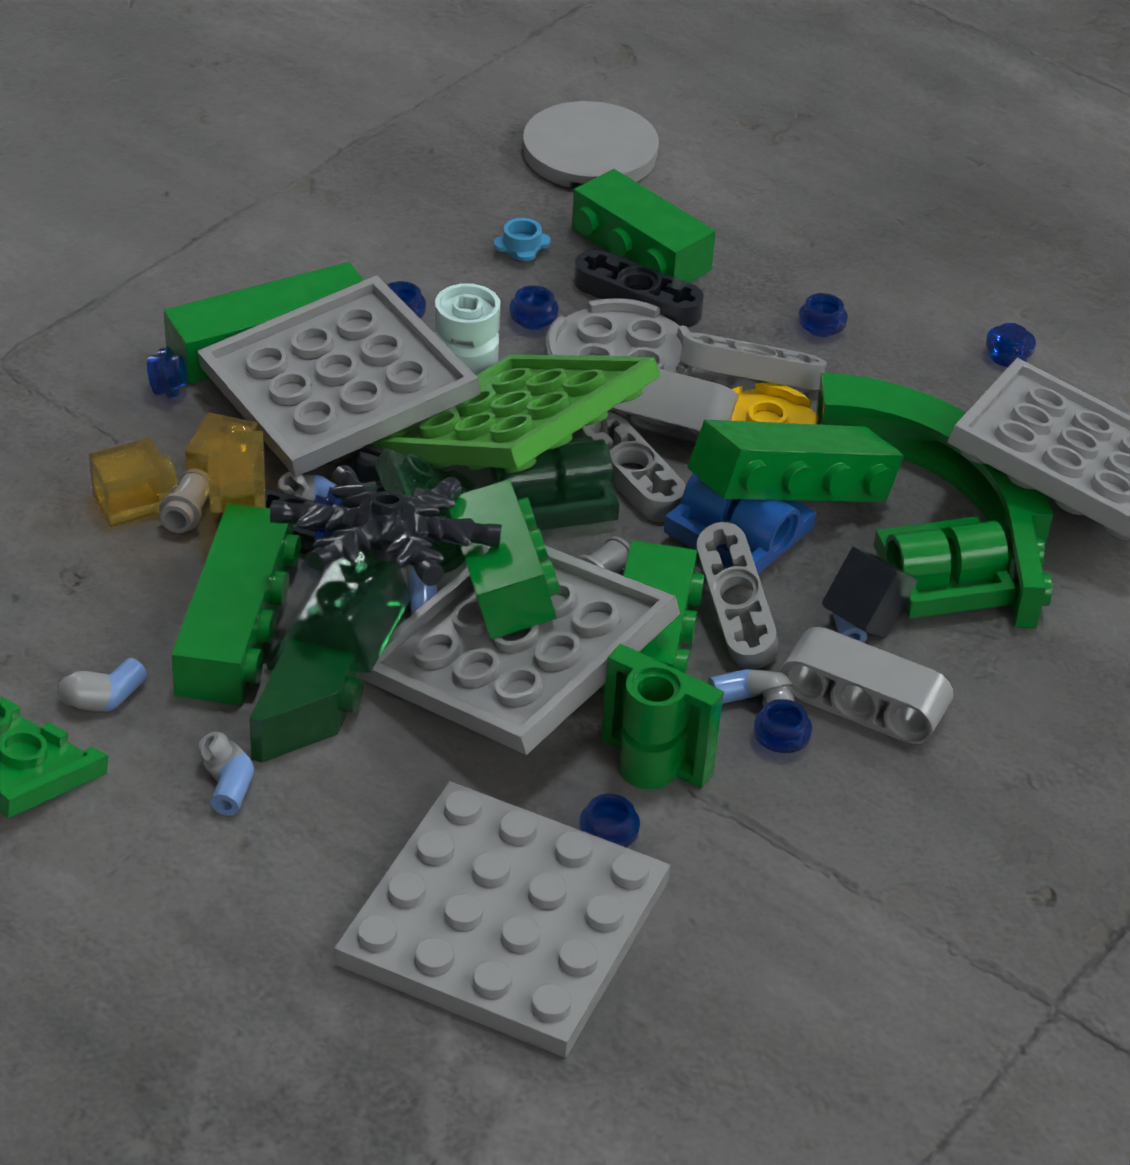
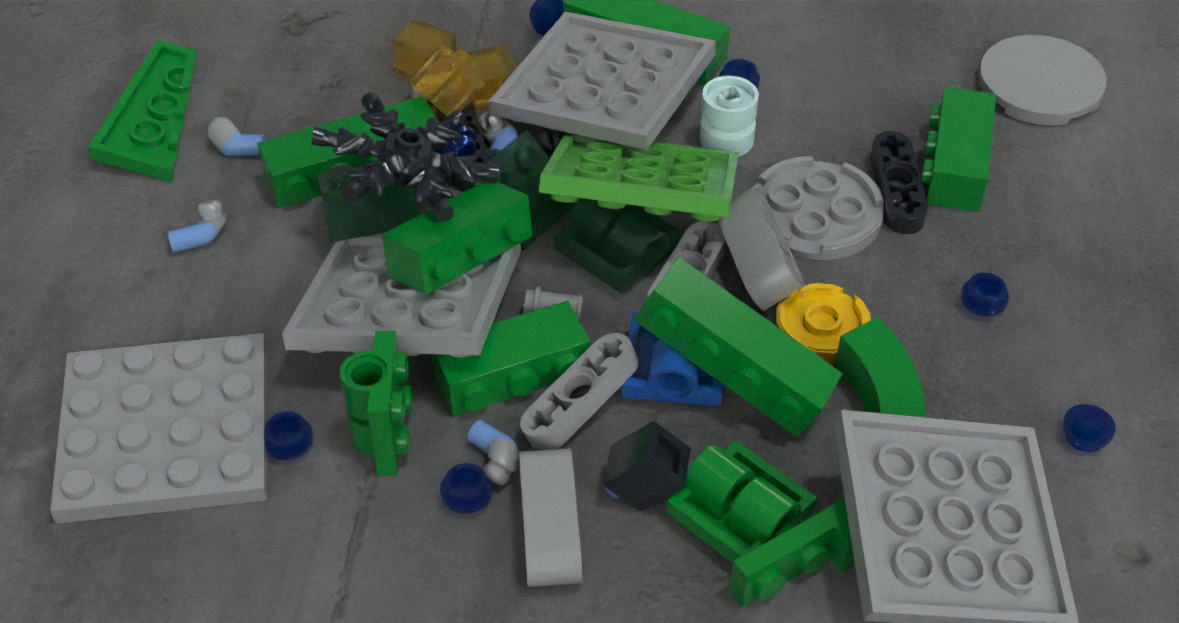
camera: 60 degrees right, 5 degrees up
(304, 699) = (281, 225): dark green slope -> none
(522, 239) = (880, 98): dark azure plate -> none
(534, 307) = (809, 139): clear blue plate -> none
(752, 360) = (879, 292): light grey beam -> none

